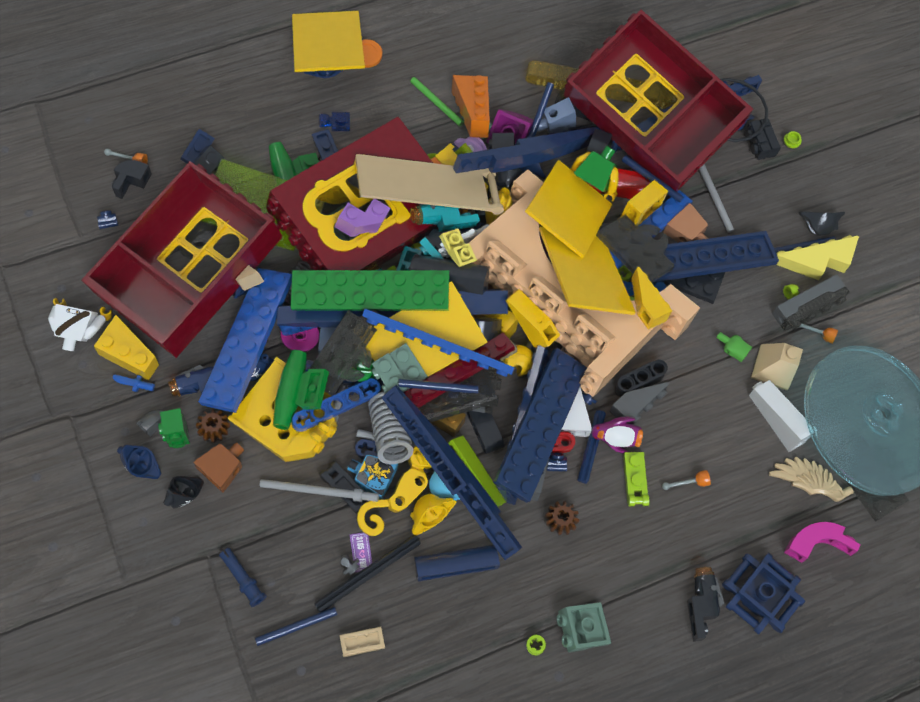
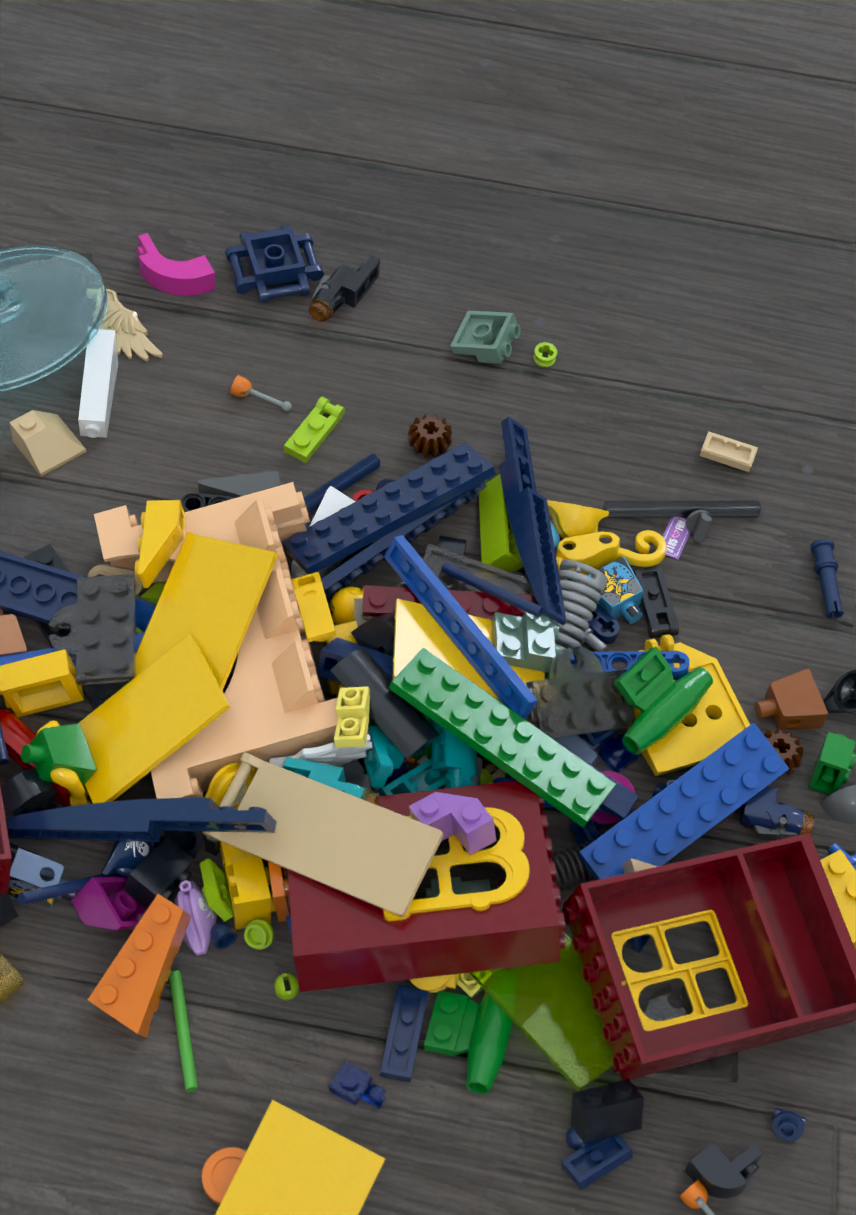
camera: 145 degrees left, 10 degrees down
(295, 626) = (793, 506): dark blue piece -> none
(356, 495) = (650, 573): light grey bar -> none
(456, 563) = (579, 462): dark blue brick -> none
(618, 433) = (300, 469): animal -> none
(735, 346) = (75, 483): bright green piece -> none

